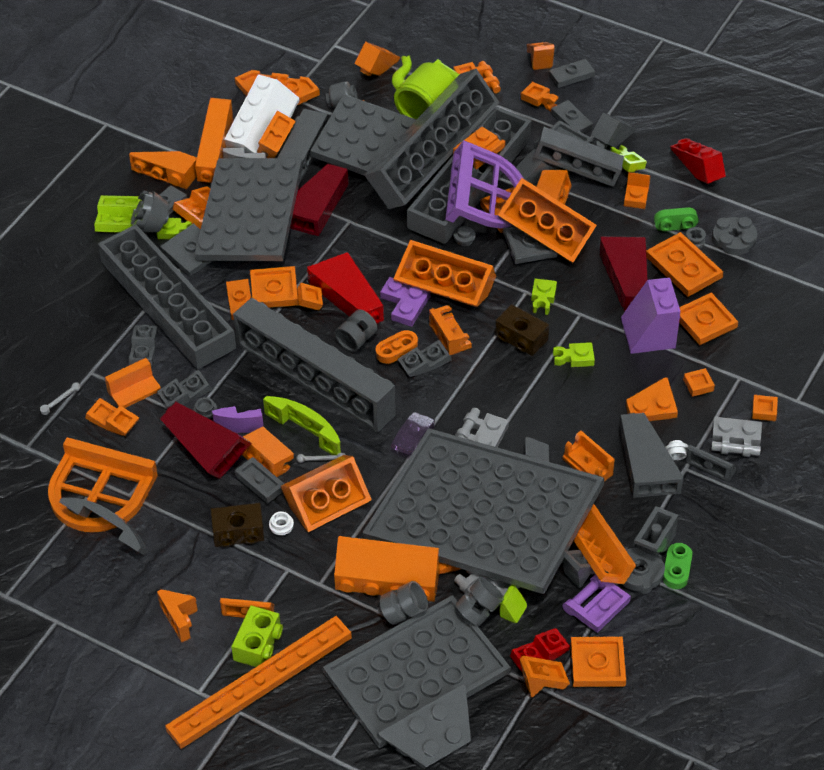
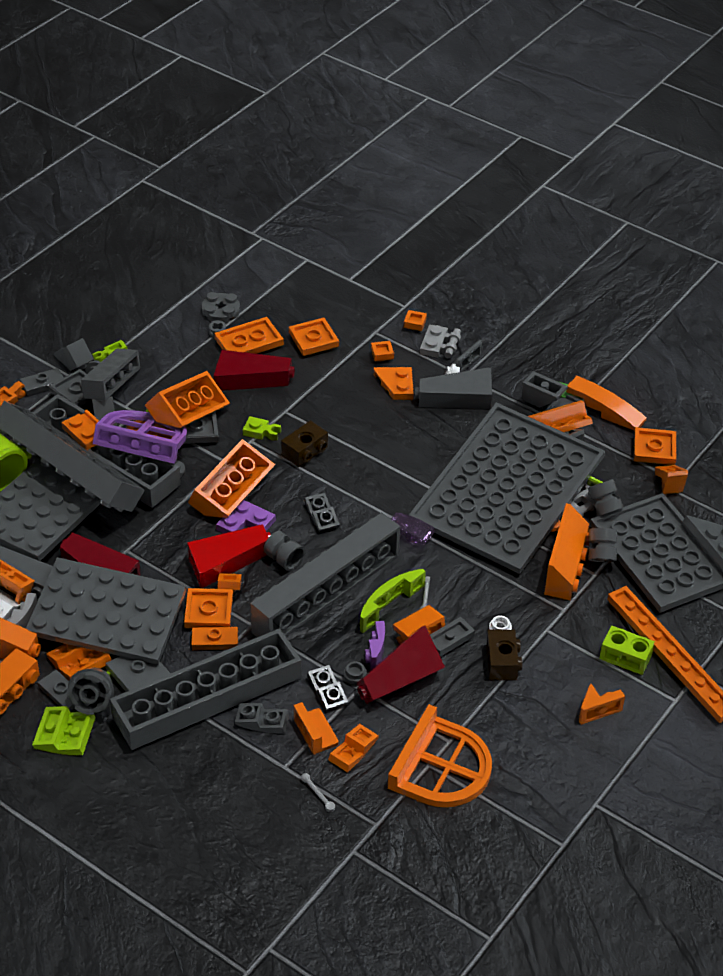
camera: 85 degrees left, 5 degrees down
(129, 535) = (479, 761): dark grey slope -> none
(239, 608) = (590, 656): orange slope -> none
(326, 492) = (469, 590): orange slope -> none
(395, 346) = (305, 528): orange plate -> none
(448, 330) = (293, 493): orange hinge -> none
(489, 430) = (411, 484): light grey plate -> none
(536, 449) = (440, 456): dark grey slope -> none
(545, 646) = (641, 479): red slope -> none
(555, 183) = (133, 398): orange panel -> none
(578, 355) = (335, 418): lime plate -> none
(588, 457) = (455, 423): orange hinge -> none
(601, 607) = (604, 437): medium lavender plate -> none
(637, 190) = (150, 354): orange slope -> none
(652, 318) = (317, 357): medium lavender slope -> none
(659, 605) = (611, 406): none -> orange slope
(676, 219) = (197, 338): bright green plate -> none
(700, 160) = (130, 309): red slope -> none

